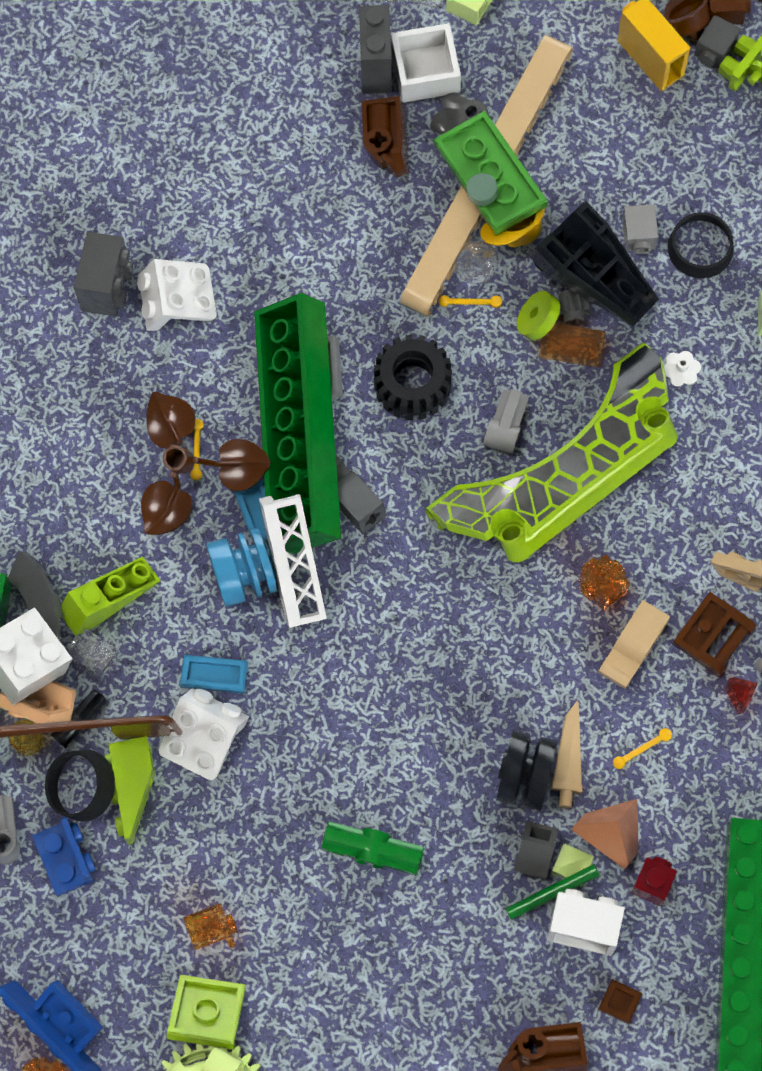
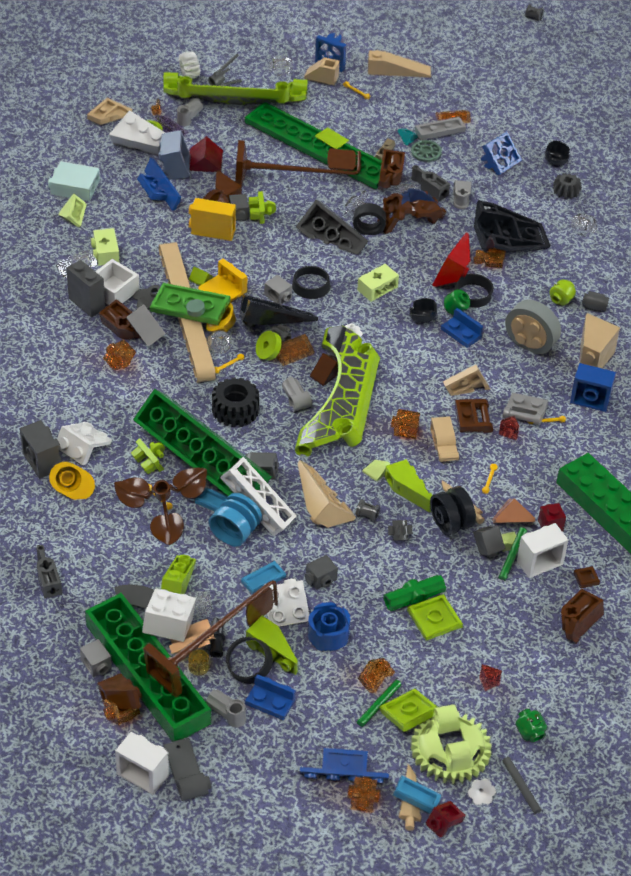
camera: 45 degrees left, 25 degrees down
(104, 349) = (80, 481): none -> yellow piece
(186, 967) = (372, 710): none -> green bar
(207, 799) = (328, 627): none -> blue brick
(237, 380) = (142, 451): none -> lime hips
(283, 726) = (321, 572): none -> dark grey brick
(330, 189) = (119, 355): none -> clear orange brick
(346, 1047) = (490, 677): none -> clear red slope
(368, 901) = (434, 617): none -> lime tile
(384, 619) = (321, 500): none -> tan wedge
(403, 166) = (145, 325): none -> light grey panel
(430, 676) = (367, 510): none -> dark grey bush
(440, 741) = (400, 530): none -> dark grey gear
(504, 619) = (376, 469): none -> yellowish green slope
(517, 672) = (406, 483): none -> lime slope
(561, 126) = (199, 276): none -> lime slope
(573, 168) = (228, 281): none -> yellow bracket
(580, 407) = (325, 369): none -> reddish brown slope

